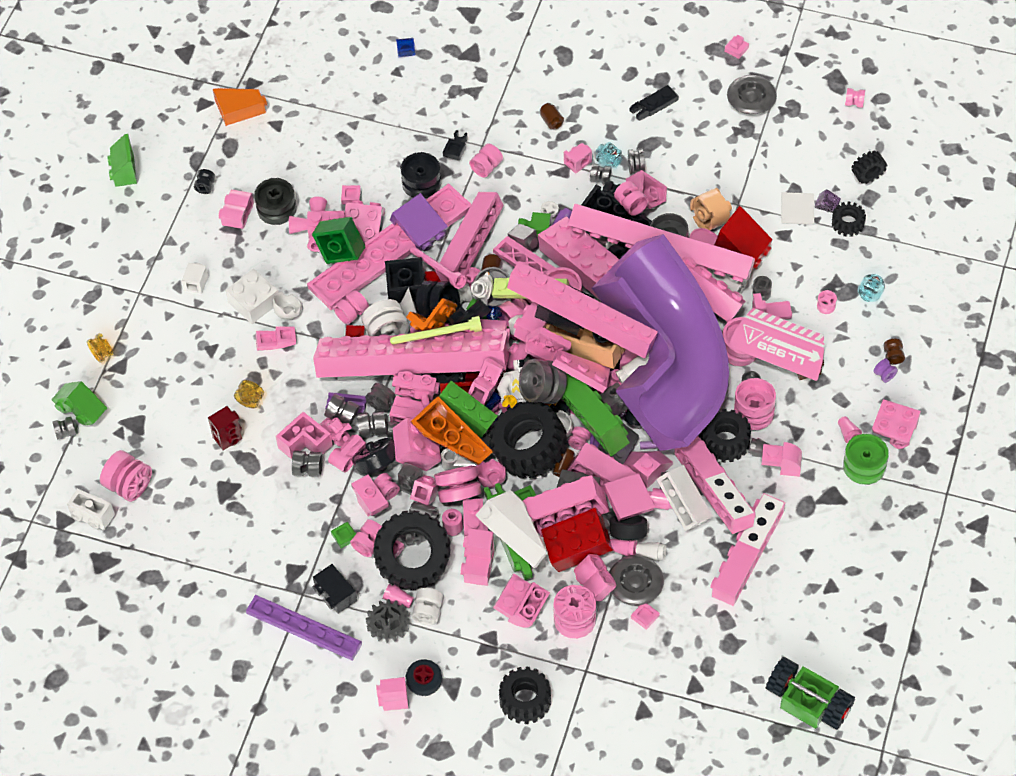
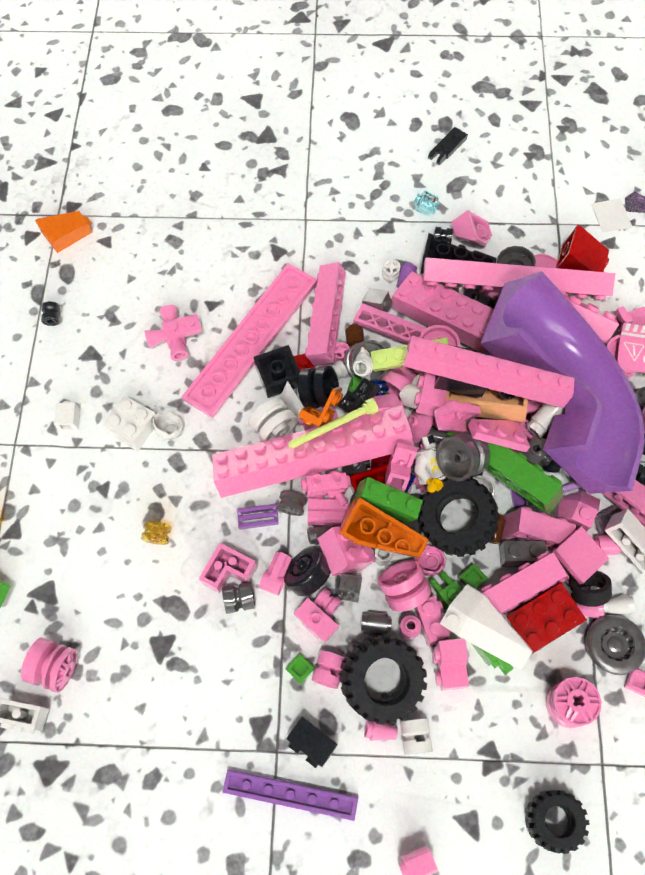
camera: 15 degrees left, 10 degrees up
(225, 427) = (142, 579): dark red brick -> none
(236, 209) = (89, 334): bright pink brick -> none
(275, 201) = (126, 318): pearl dark grey wheel -> none
(277, 339) = (166, 462): bright pink slope -> none
(337, 430) = (257, 551): bright pink hips -> none
(338, 240) = (201, 345): green brick -> none
(343, 410) = (257, 529): flat silver wheel -> none
(350, 193) = (197, 295): bright pink plate -> none
(352, 306) = (234, 409): bright pink wheel -> none
(355, 330) = (243, 437): red plate -> none
(366, 217) = (216, 319): bright pink bracket -> none
(371, 424) = (291, 535): flat silver wheel -> none
(397, 622) = (392, 761): dark grey gear -> none
(405, 47) = (206, 142): clear blue plate -> none
(418, 672) = (447, 832): black wheel -> none
(420, 174) = (259, 261): black wheel -> none
(420, 222) = (273, 308): medium lavender panel -> none
(424, 490) = (370, 599): bright pink brick -> none
(455, 148) = (282, 226): black plate -> none
(456, 279) = (334, 361): bright pink piece -> none
(486, 160) = (315, 233): bright pink wheel -> none
(521, 601) = (513, 704): bright pink brick -> none
(539, 222) = (385, 282): bright green brick -> none
(551, 116) = (361, 177): reddish brown brick -> none
(578, 157) = (398, 211): bright pink brick -> none
(579, 437) = (503, 497): bright pink wheel -> none
(594, 575) = (577, 655): bright pink brick -> none
(600, 173) = (425, 222): flat silver wheel -> none
(631, 198) = (472, 240): bright pink wheel -> none
(638, 161) = (454, 203): flat silver wheel -> none
(710, 209) = (541, 234): light nougat brick -> none
(737, 46) = (500, 80): bright pink tile -> none
(751, 98) = (531, 119): flat silver wheel -> none
(762, 285) = (615, 301): flat silver wheel -> none
(858, 99) = (622, 103): bright pink wheel -> none

